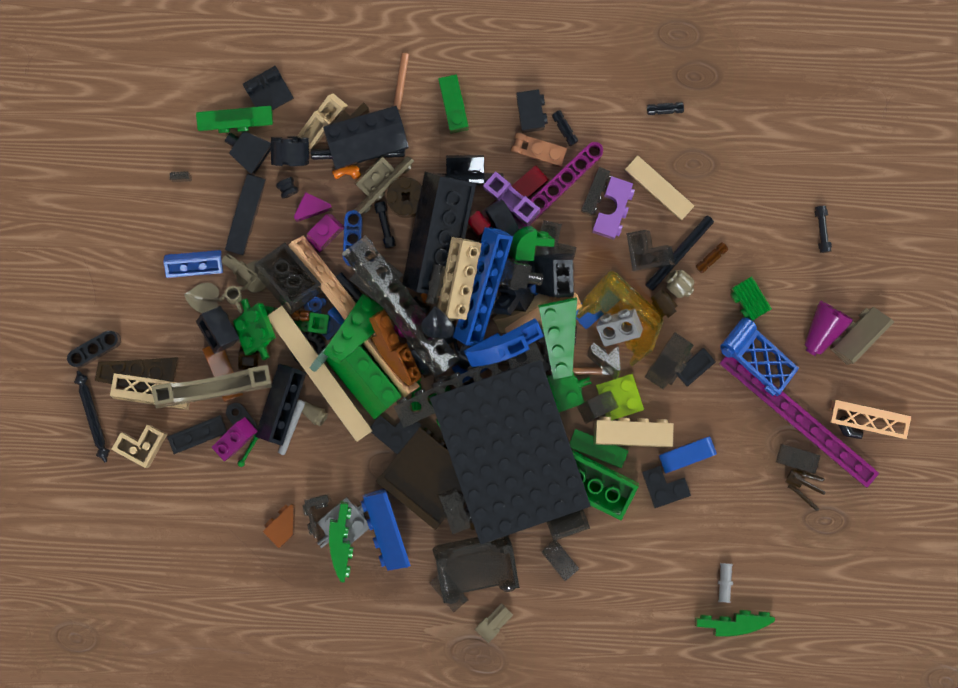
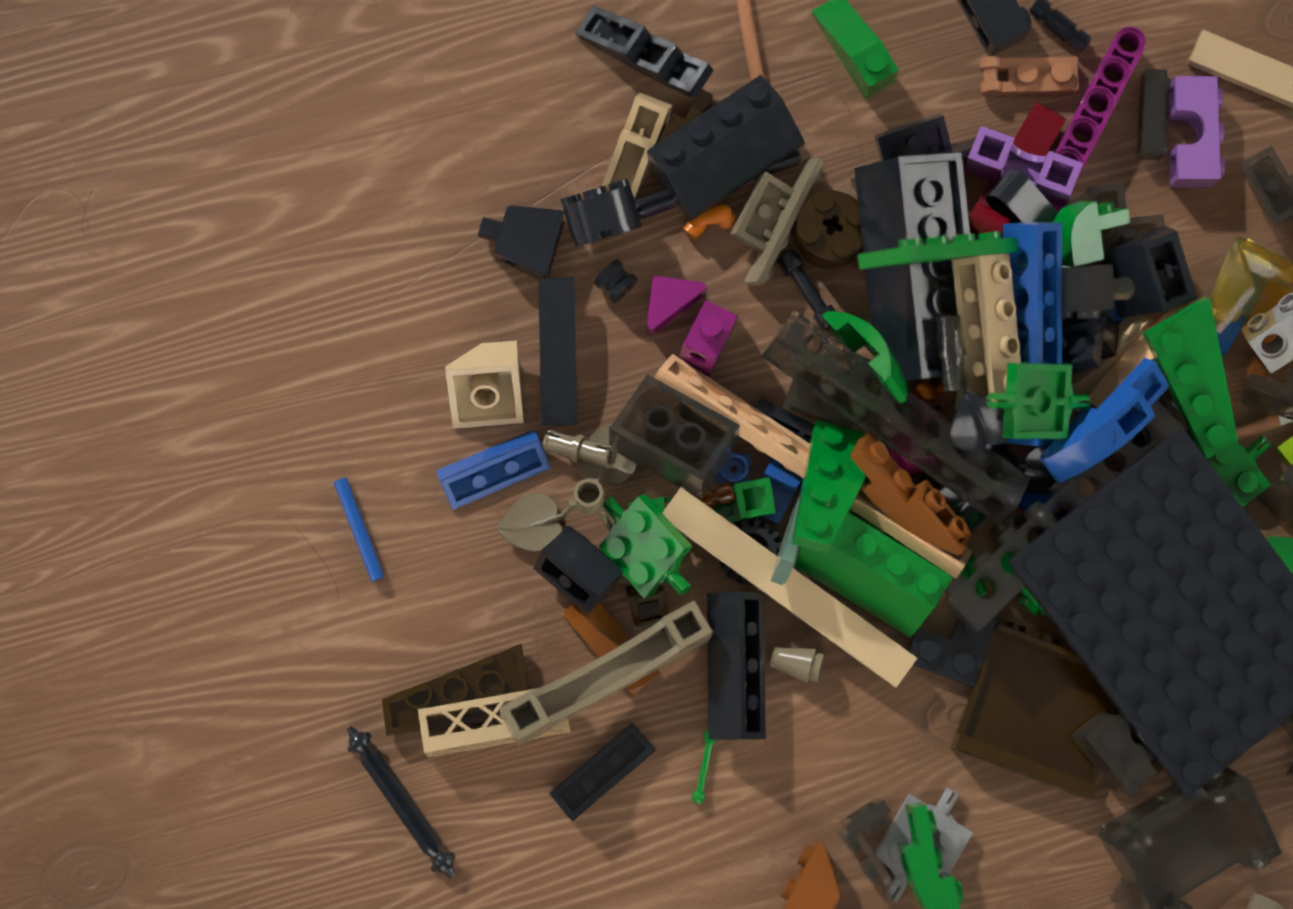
camera: 20 degrees left, 5 degrees down
(84, 349) = (349, 686): black beam -> none
(115, 272) = (358, 529): none -> blue bar
(142, 450) = (515, 834): tan brick -> none
(183, 176) = (420, 322): clear smoke tile -> none
(203, 220) = (486, 386): none -> tan slope
(234, 118) = (481, 191): green bracket -> none
(234, 439) = (676, 756): magenta brick -> none
(242, 413) = (672, 719): black plate -> none
(268, 89) = (524, 126): black hinge -> none
(296, 415) = (771, 677): light grey bar -> none
(342, 72) = (644, 52): none -> black slope
(351, 229) = (756, 315): blue beam -> none
(385, 529) = (1007, 829): blue slope -> none
(402, 279) = (855, 334): none -> green slope
(443, 231) = (939, 249): none -> green wing
(469, 322) = (1037, 401): none -> green plate

